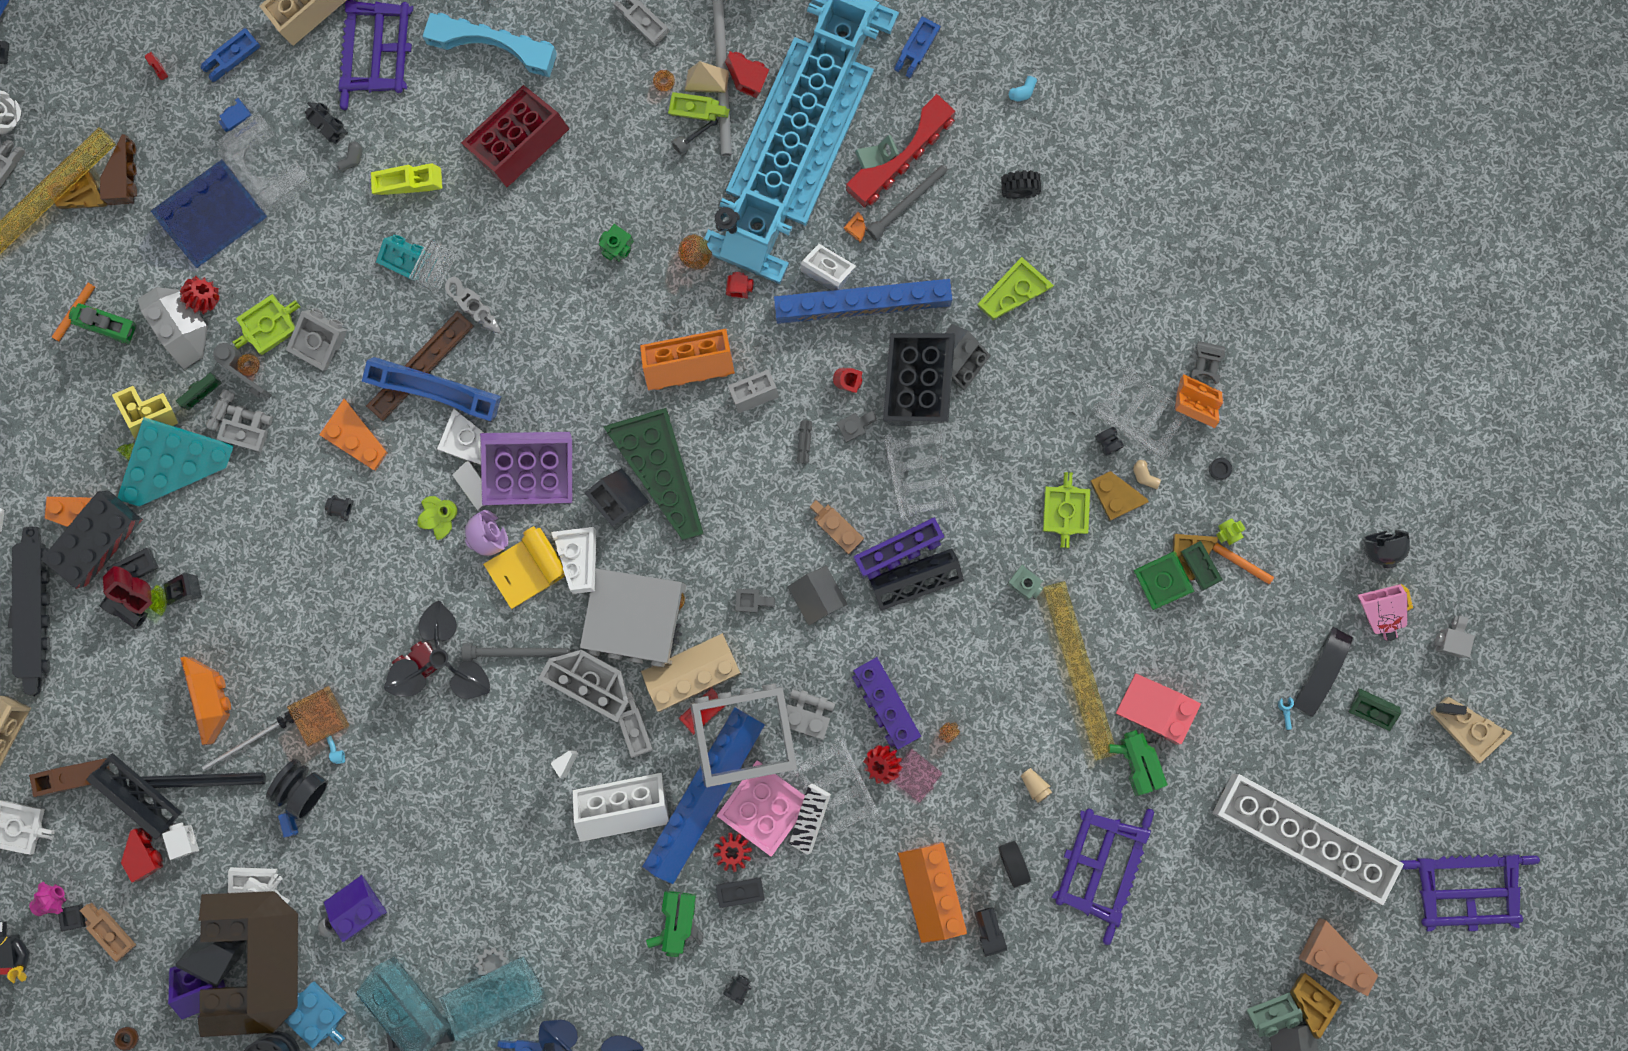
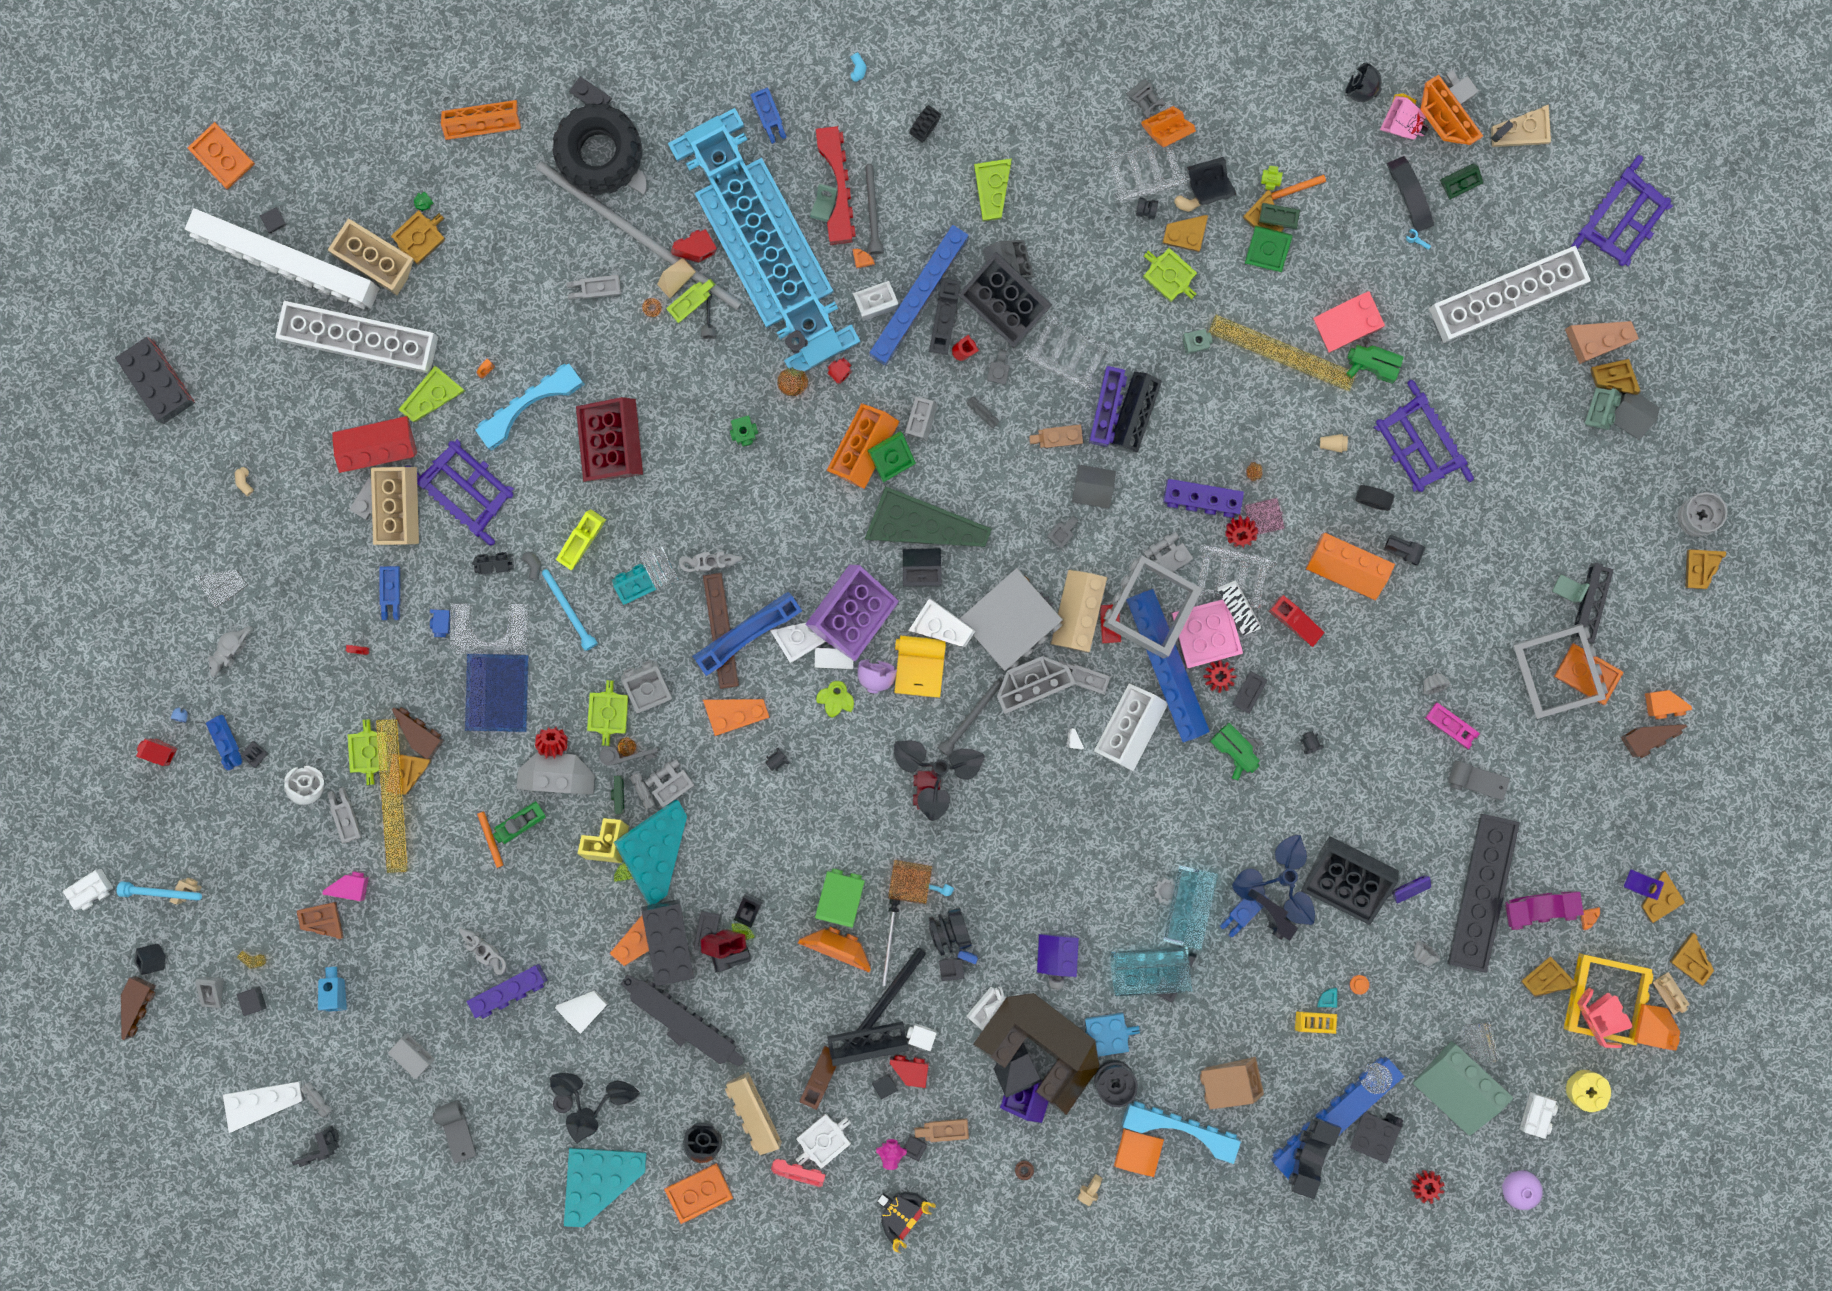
camera: 50 degrees left, 5 degrees up
(66, 140) = (364, 752): none -> lime plate
(109, 843) = (884, 1086): none -> black slope
(251, 664) = (840, 898): none -> bright green slope
(264, 820) = (951, 969): none -> black panel
(318, 257) = (587, 640): none -> medium azure piece
(696, 391) = (891, 456): none -> green tile
(841, 883) = (1296, 620): none -> red slope
(862, 340) = (944, 316): none -> black slope
(1181, 478) = (1210, 181): none -> black bracket
(1220, 469) = (1224, 149): black tile -> none
(1423, 645) = (1447, 114): none -> orange wedge

